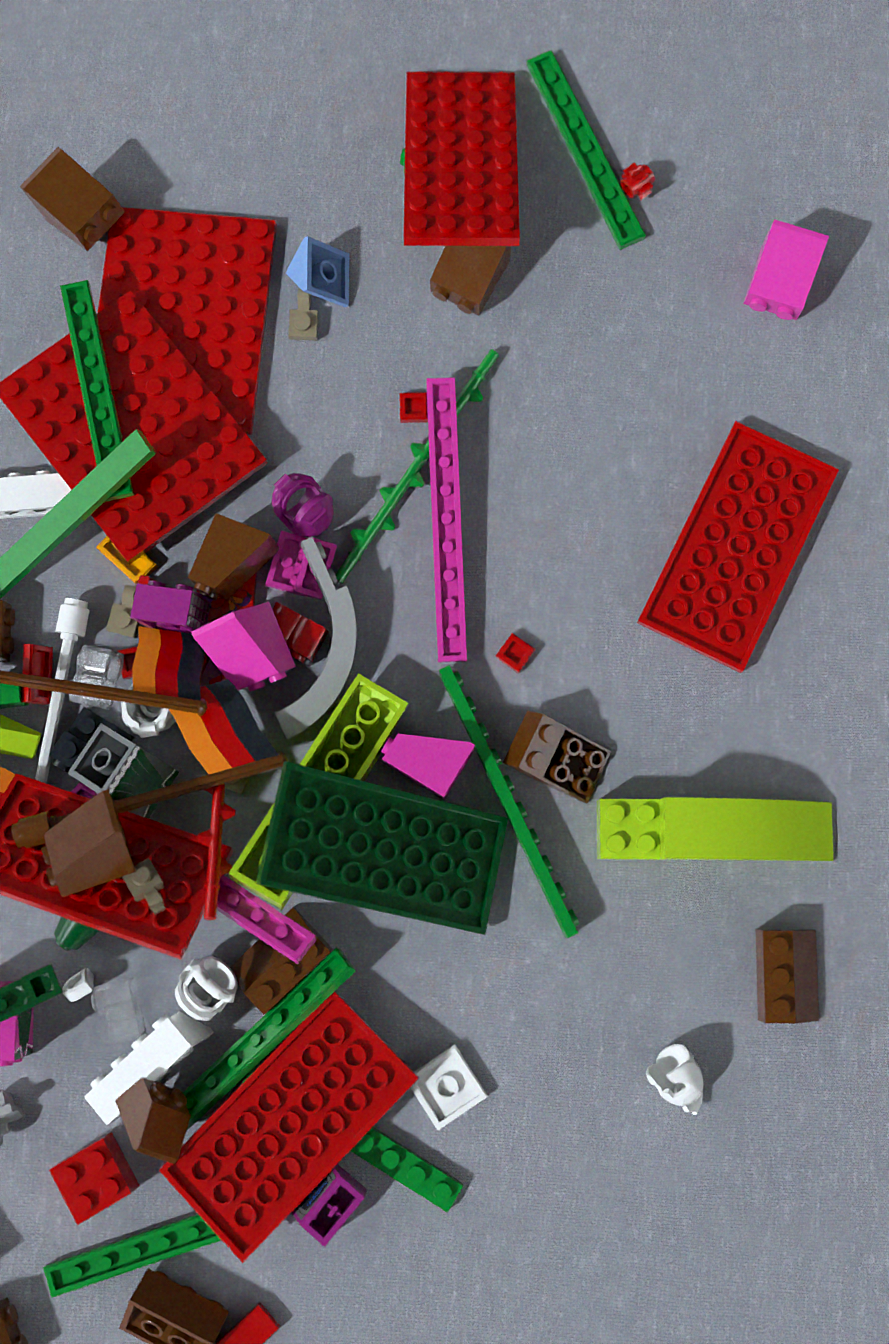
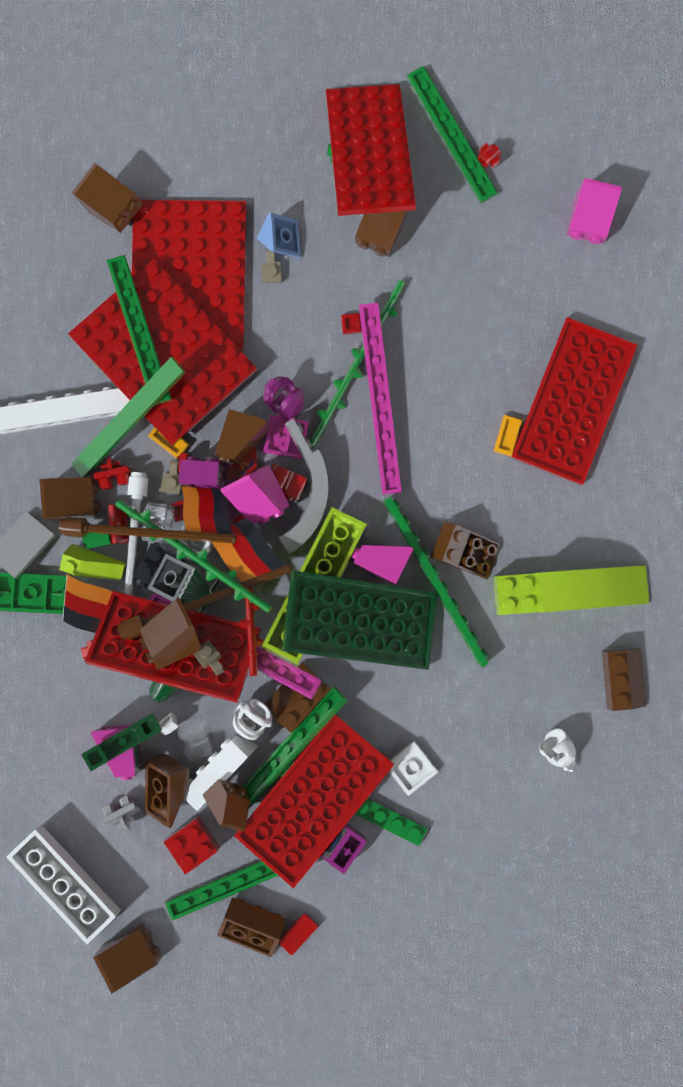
camera: 10 degrees left, 5 degrees up
(25, 602) = (104, 477): none -> red hips
(61, 1084) = (165, 788): none -> reddish brown slope
(150, 733) = (200, 558): none -> green plant
(515, 653) = (432, 484): red tile -> none
(634, 589) = (507, 435): none -> light orange tile

